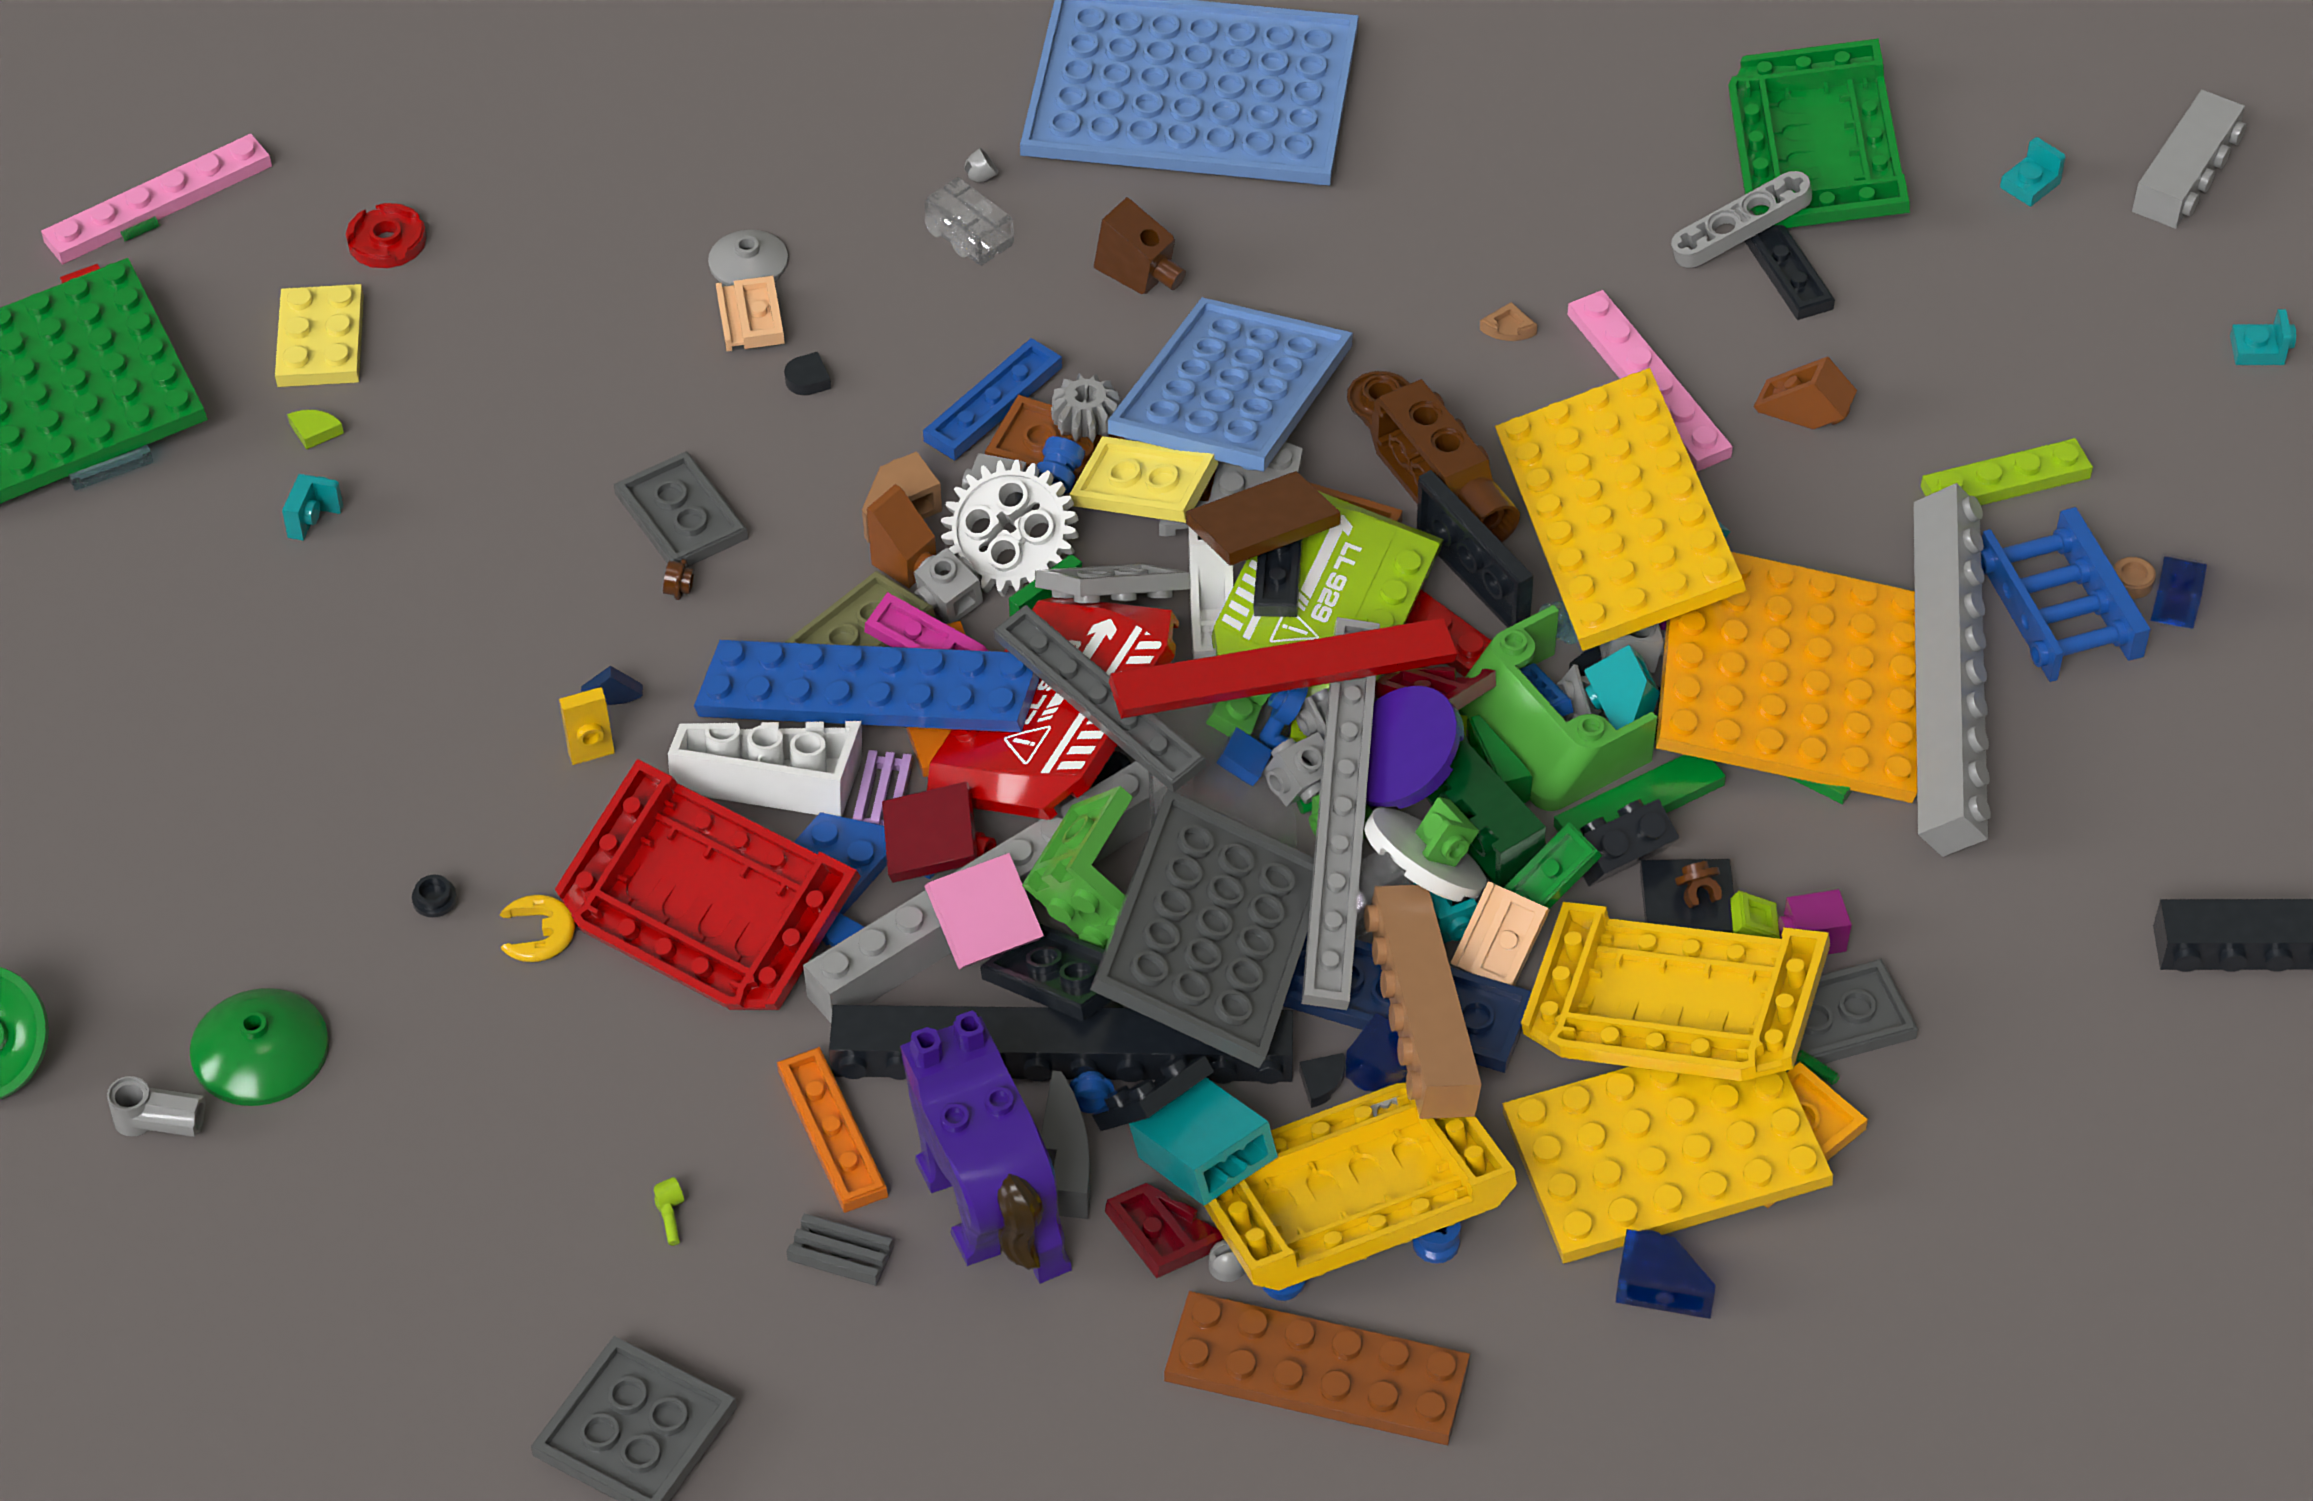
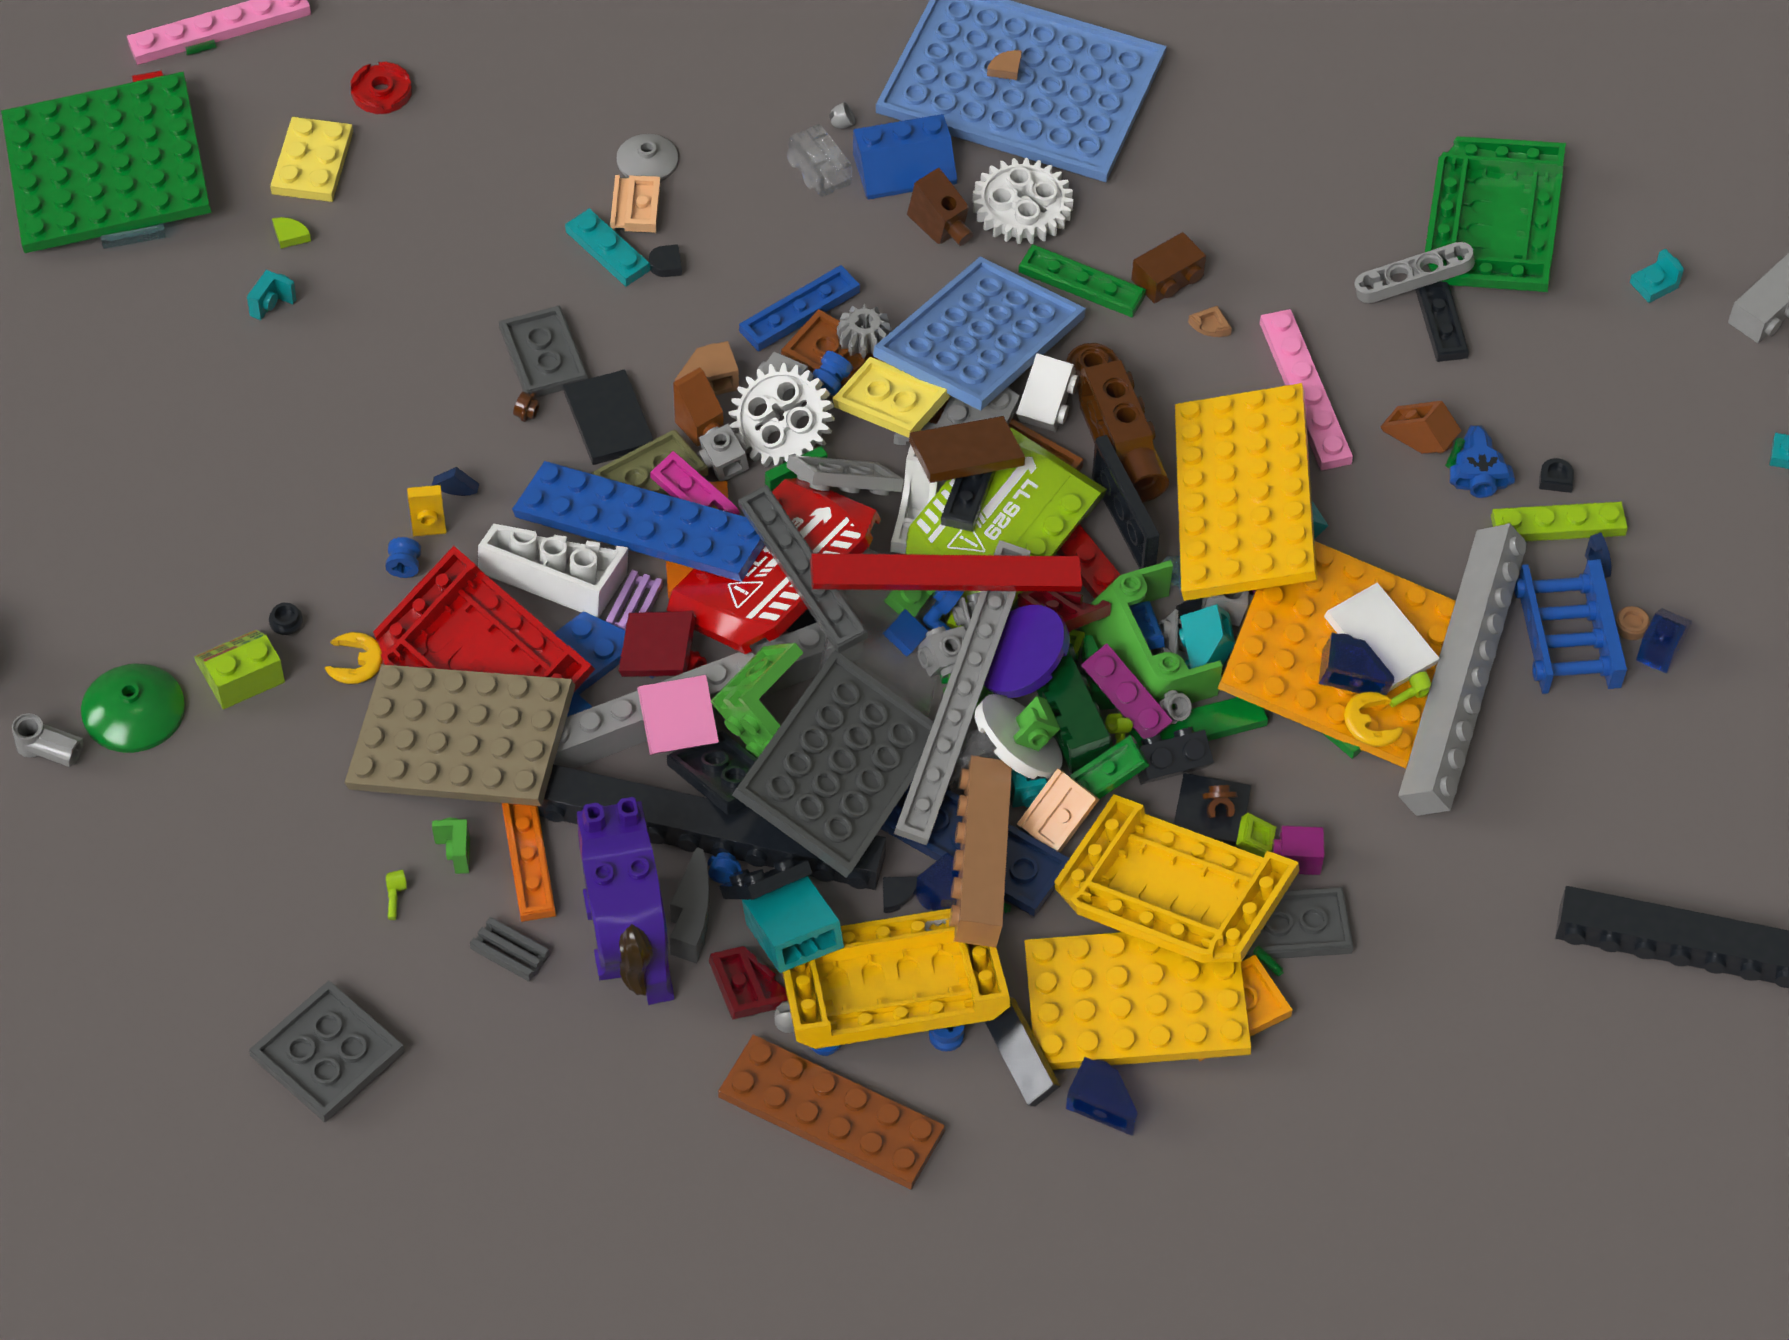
camera: 10 degrees right, 5 degrees up
(392, 968) = (241, 668): none -> lime slope
(569, 790) = (403, 557): none -> blue wheel
(706, 992) = (460, 734): none -> dark tan plate
(728, 372) = (607, 247): none -> teal plate
(731, 1119) = (456, 836): none -> bright green bracket
(784, 572) = (608, 416): none -> black tile
(1068, 196) = (901, 153): none -> blue slope
(1169, 70) = (1005, 65): none -> medium nougat tile
(1235, 223) = (1022, 201): none -> white gear
(1335, 304) = (1082, 280): none -> green tile
(1335, 439) = (1047, 393): none -> white brick
(1439, 268) = (1169, 267): none -> reddish brown brick
(1544, 1246) = (1023, 1055): none -> tile
(1545, 774) = (1126, 692): none -> magenta plate
(1549, 815) = (1118, 725): none -> lime hand
(1617, 781) = (1182, 703): none -> light grey plate
(1820, 688) = (1353, 666): none -> clear blue slope
(1840, 648) = (1386, 630): none -> white tile
(1843, 754) = (1357, 722): none -> yellow head
(1856, 411) = (1456, 449): none -> green leg
(1891, 428) = (1480, 466): none -> blue rock
(1904, 699) = (1420, 687): none -> lime hand
(1986, 424) = (1556, 476): none -> black tile
(2067, 496) = (1598, 549): none -> dark blue tile

